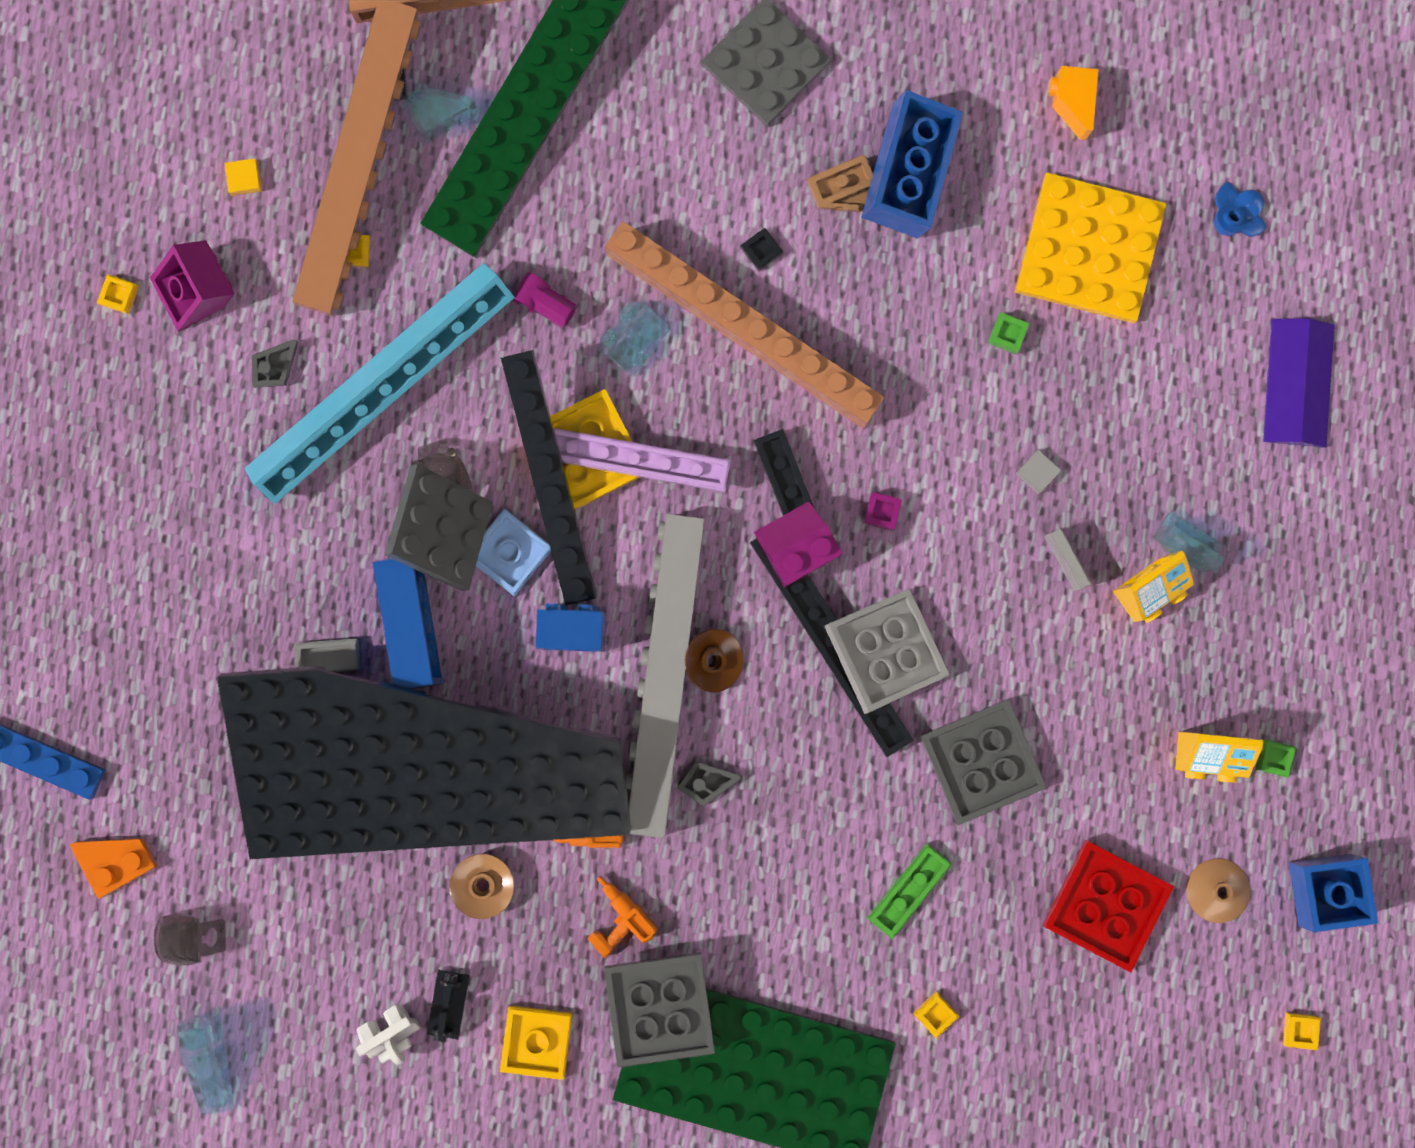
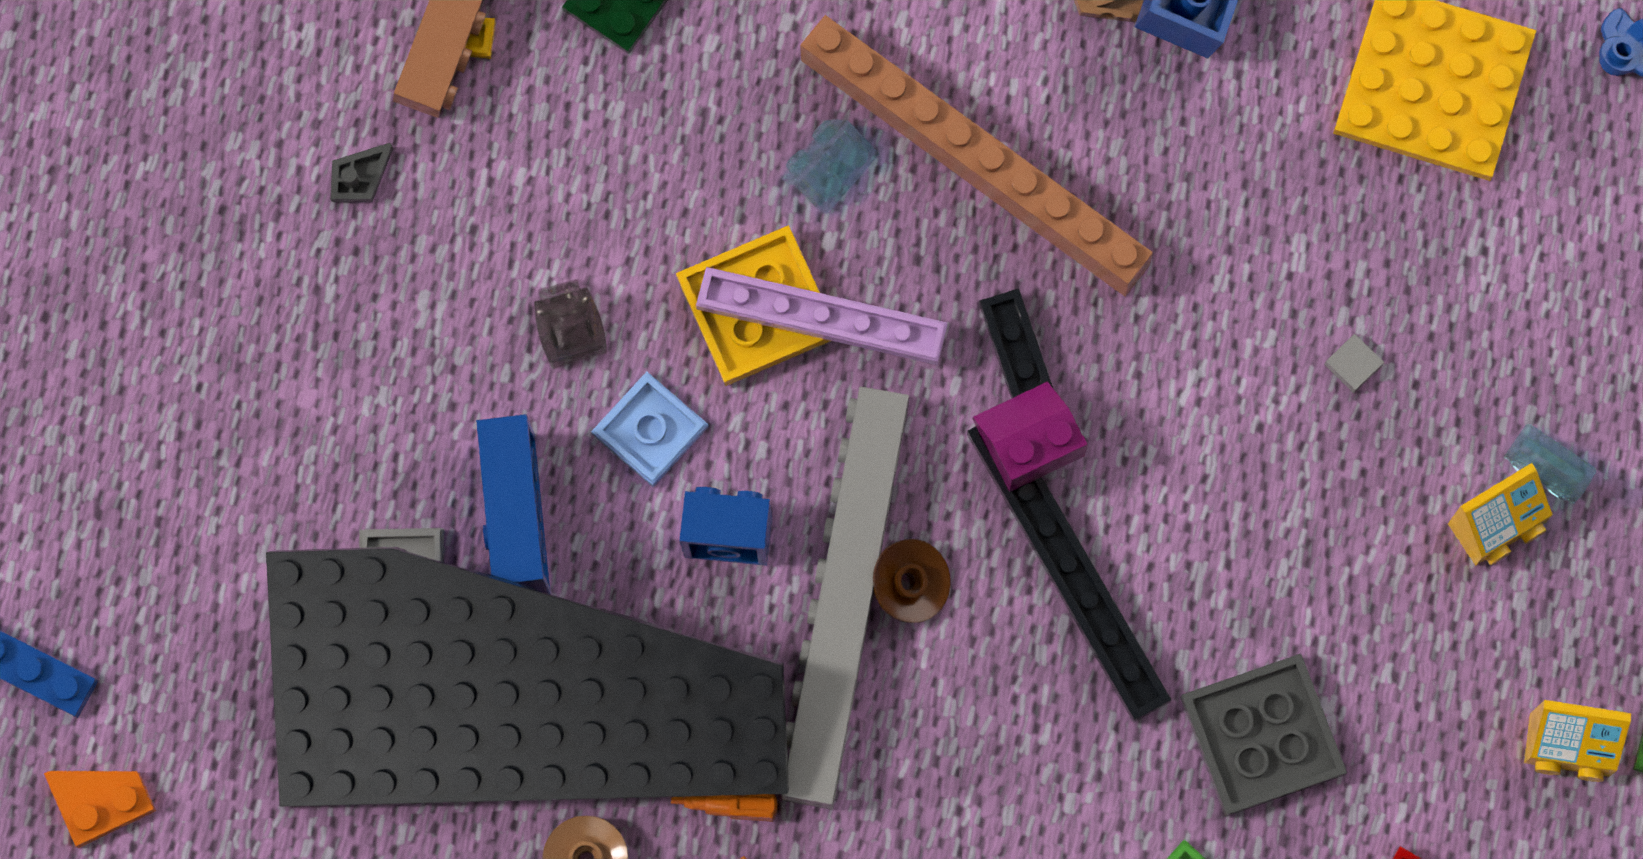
camera: 10 degrees right, 10 degrees down
(117, 294) = (165, 76): yellow tile -> none
(191, 283) = (262, 67): magenta slope -> none
(378, 383) = (496, 202): medium azure brick -> none
(439, 528) = (564, 385): dark grey plate -> none
(539, 298) = (708, 106): magenta piece -> none
(549, 477) = (709, 331): black plate -> none
(706, 782) = (892, 742): dark grey piece -> none
(761, 249) = (1003, 62): black tile -> none
(882, 511) = (1144, 402): magenta plate -> none
(886, 651) = (1141, 579): light grey plate -> none
(1008, 333) = (1321, 183): bright green plate -> none
(1067, 559) = (1387, 476): light grey tile -> none

